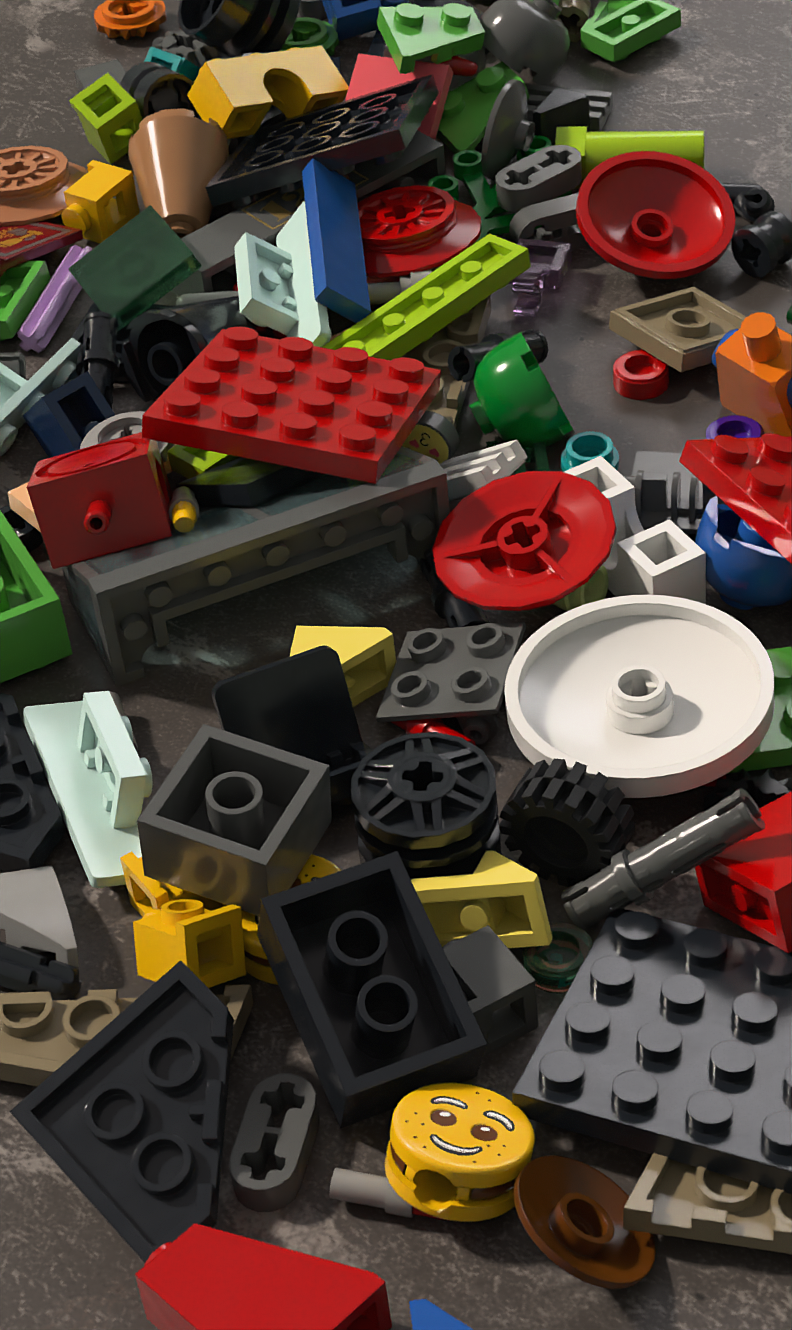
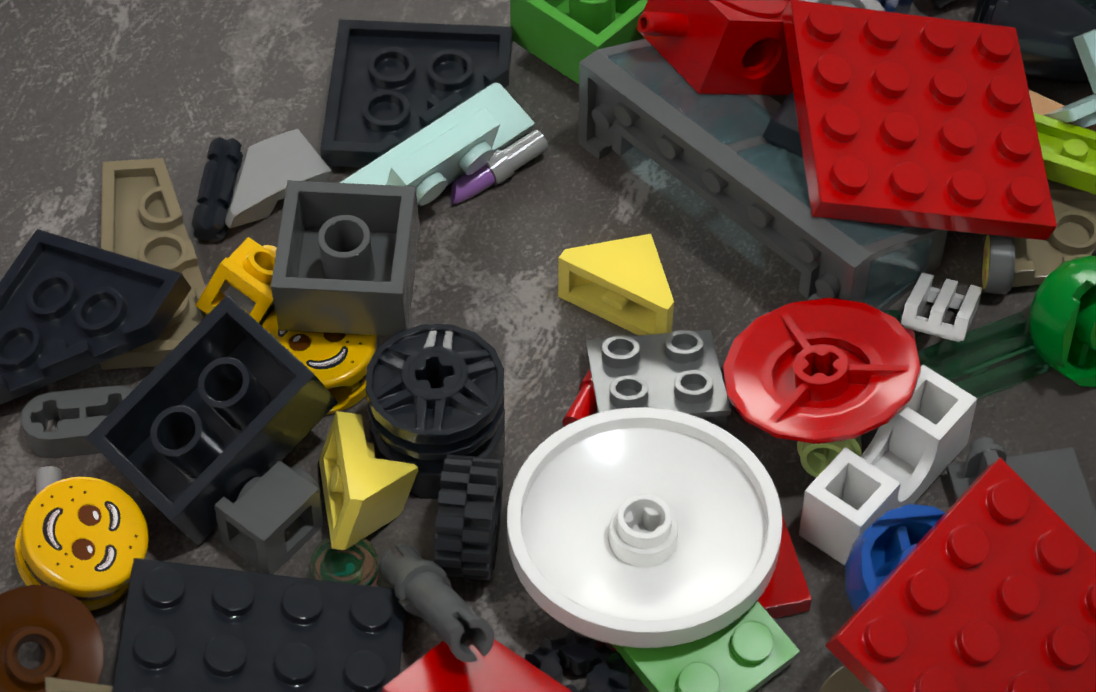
camera: 65 degrees right, 10 degrees up
(183, 509) = (743, 90): piece -> none
(298, 708) = (511, 283): black bracket -> none
(586, 447) = (1041, 396): teal plate -> none

